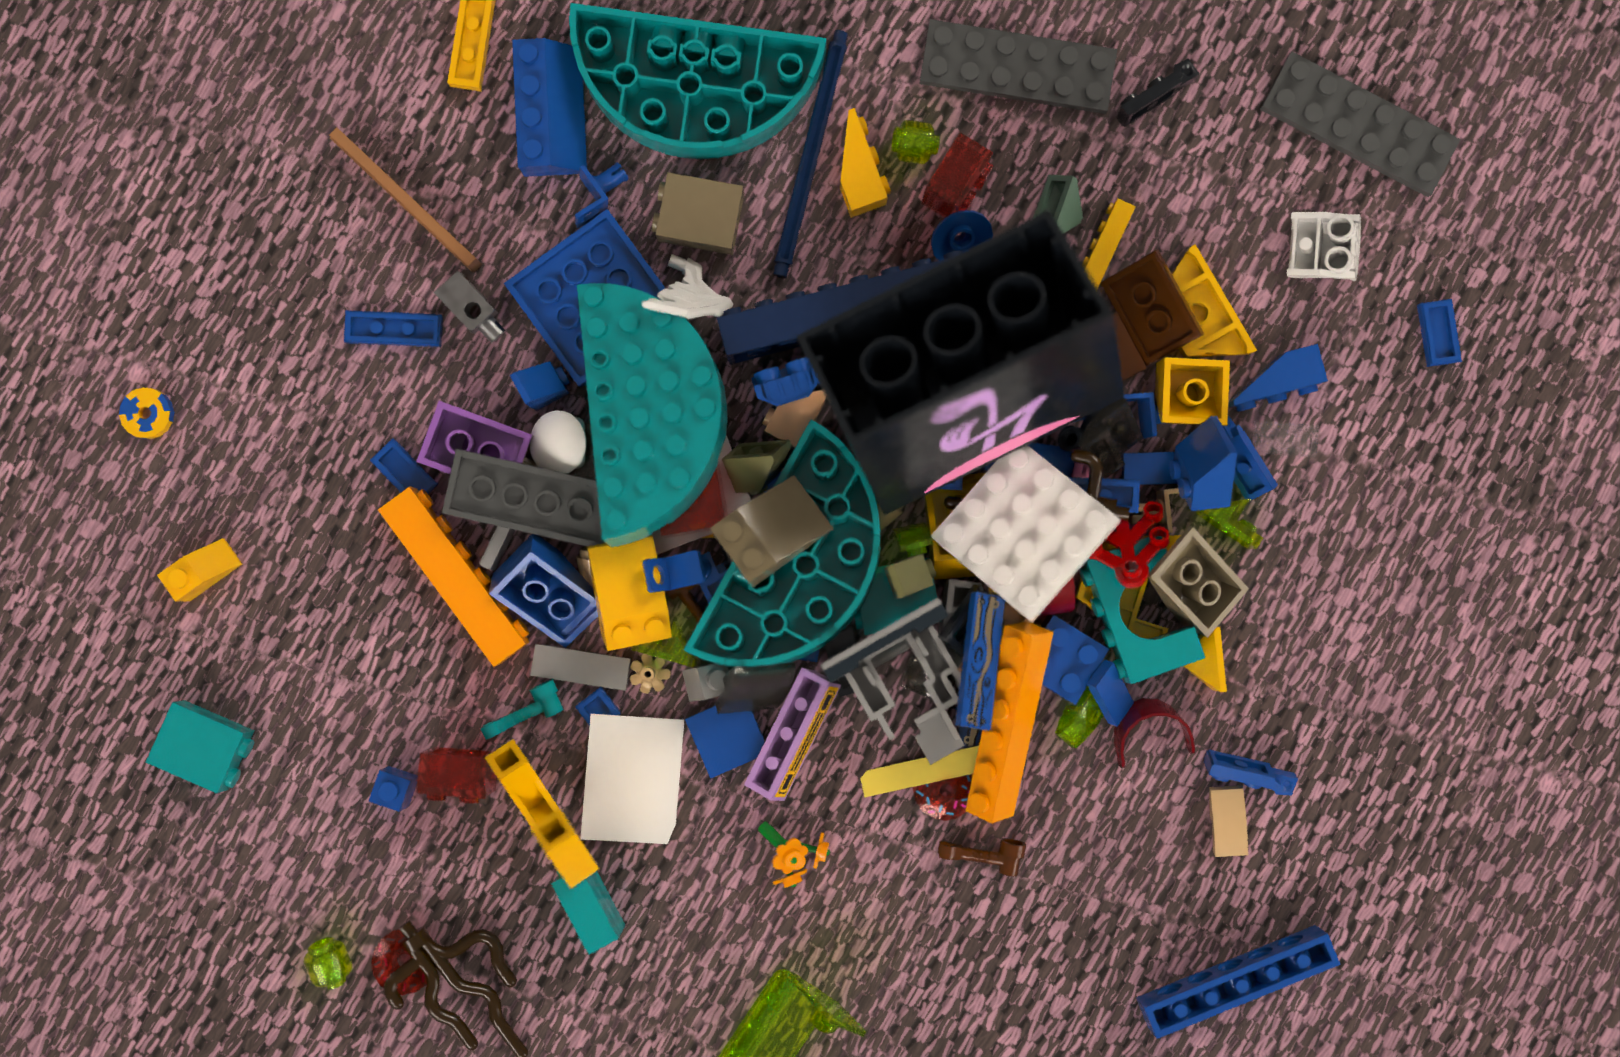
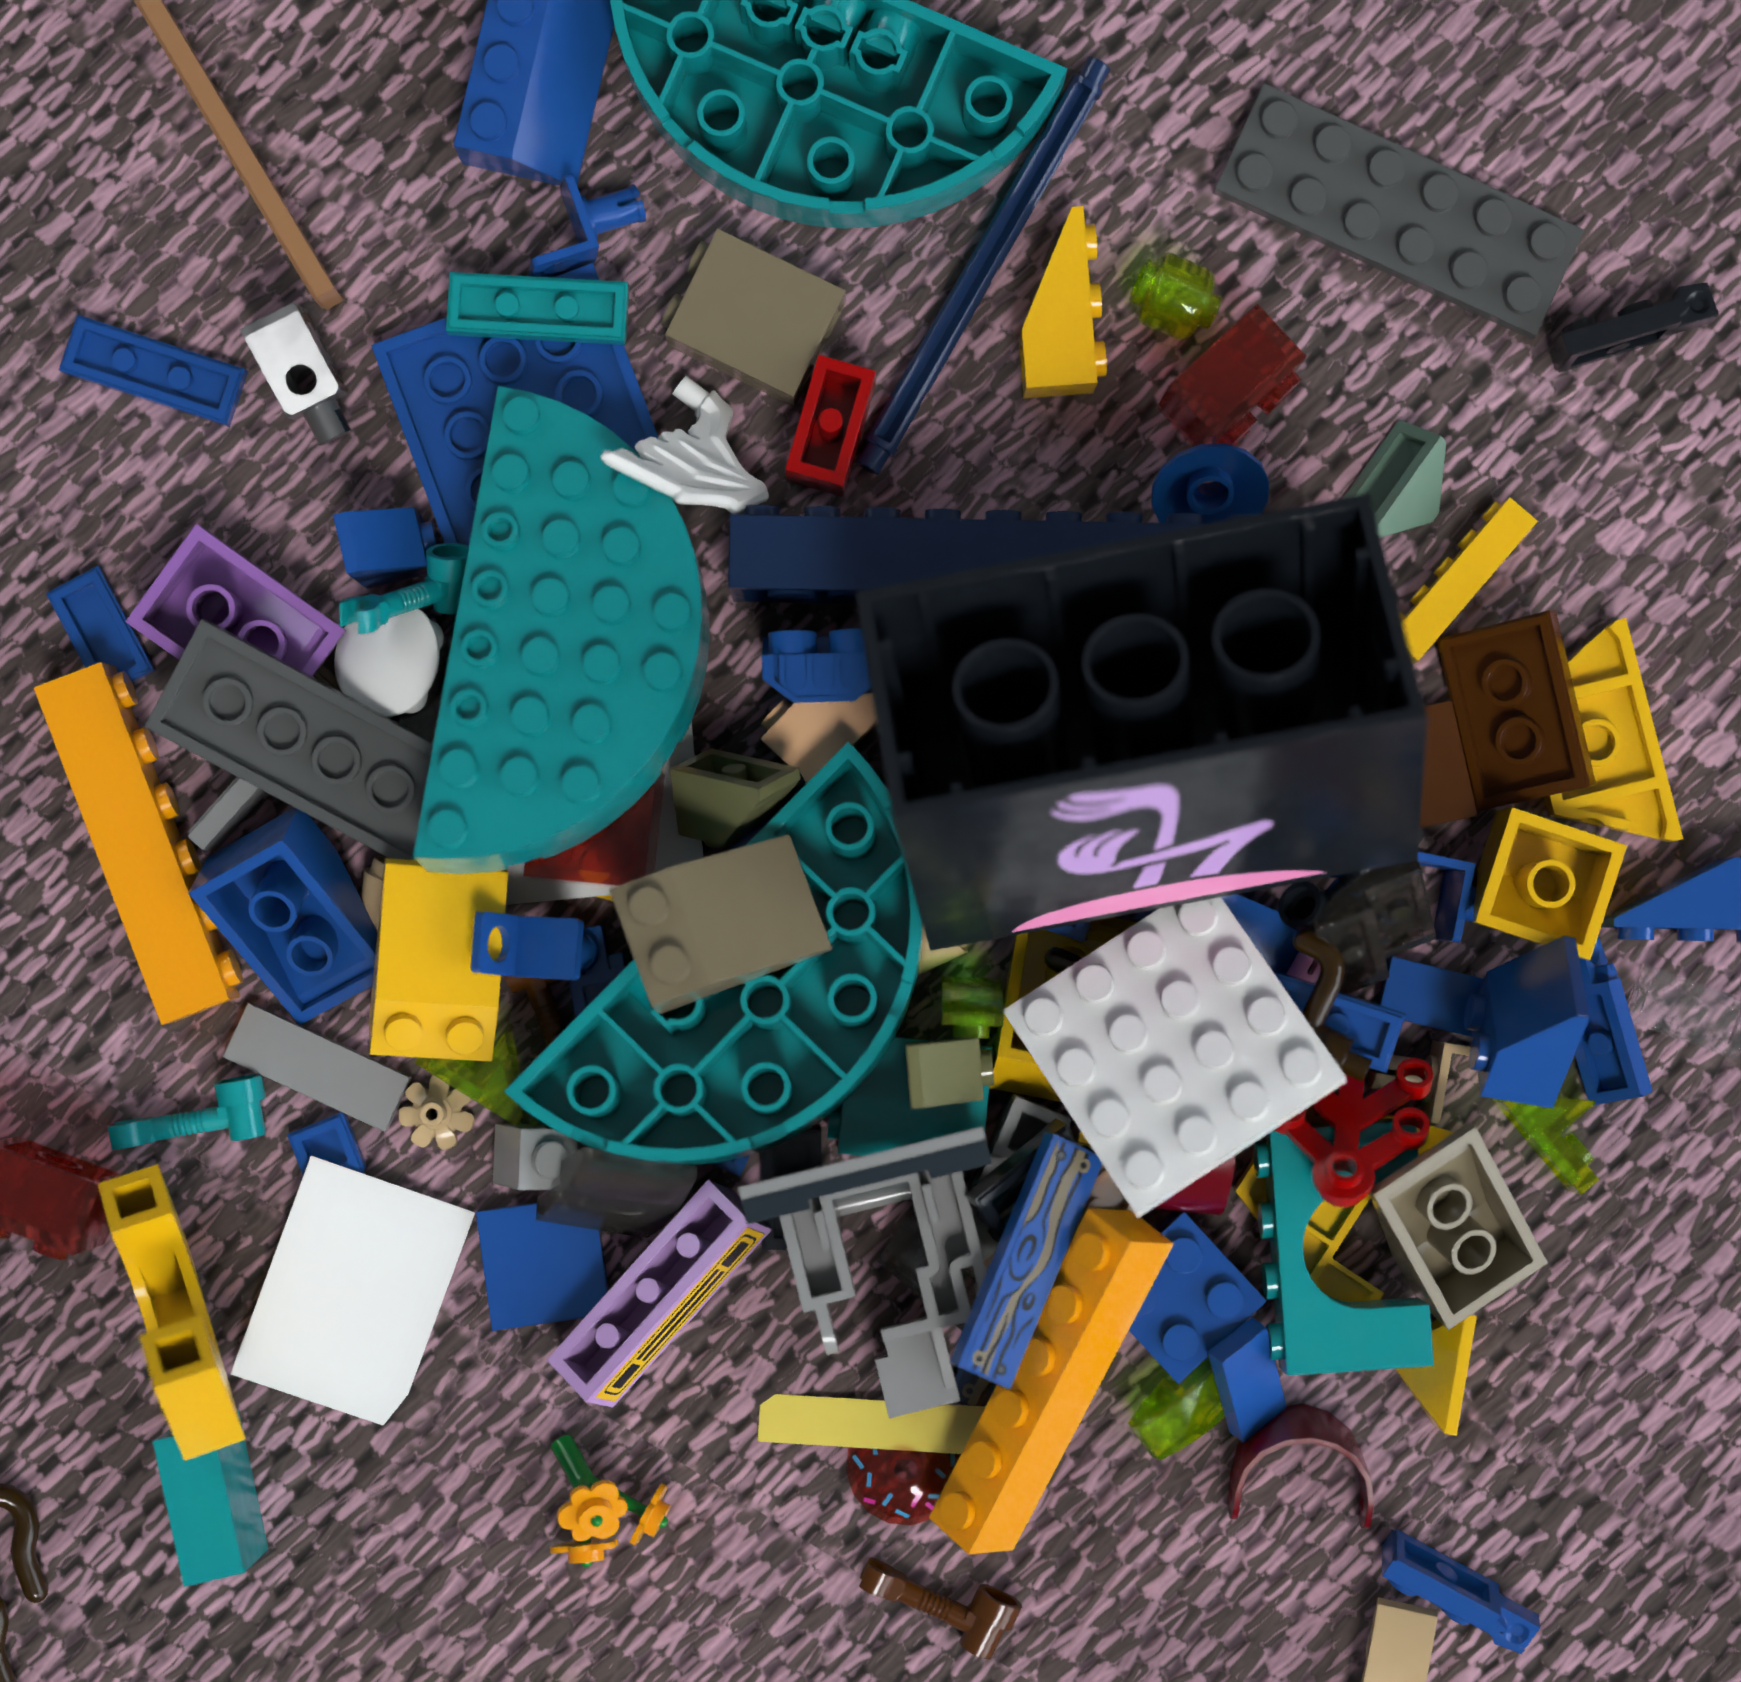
camera: 15 degrees right, 0 degrees up
(575, 399) = (441, 588): none -> teal brick
(585, 240) = (537, 308): none -> teal tile
(755, 259) = (830, 425): none -> red brick

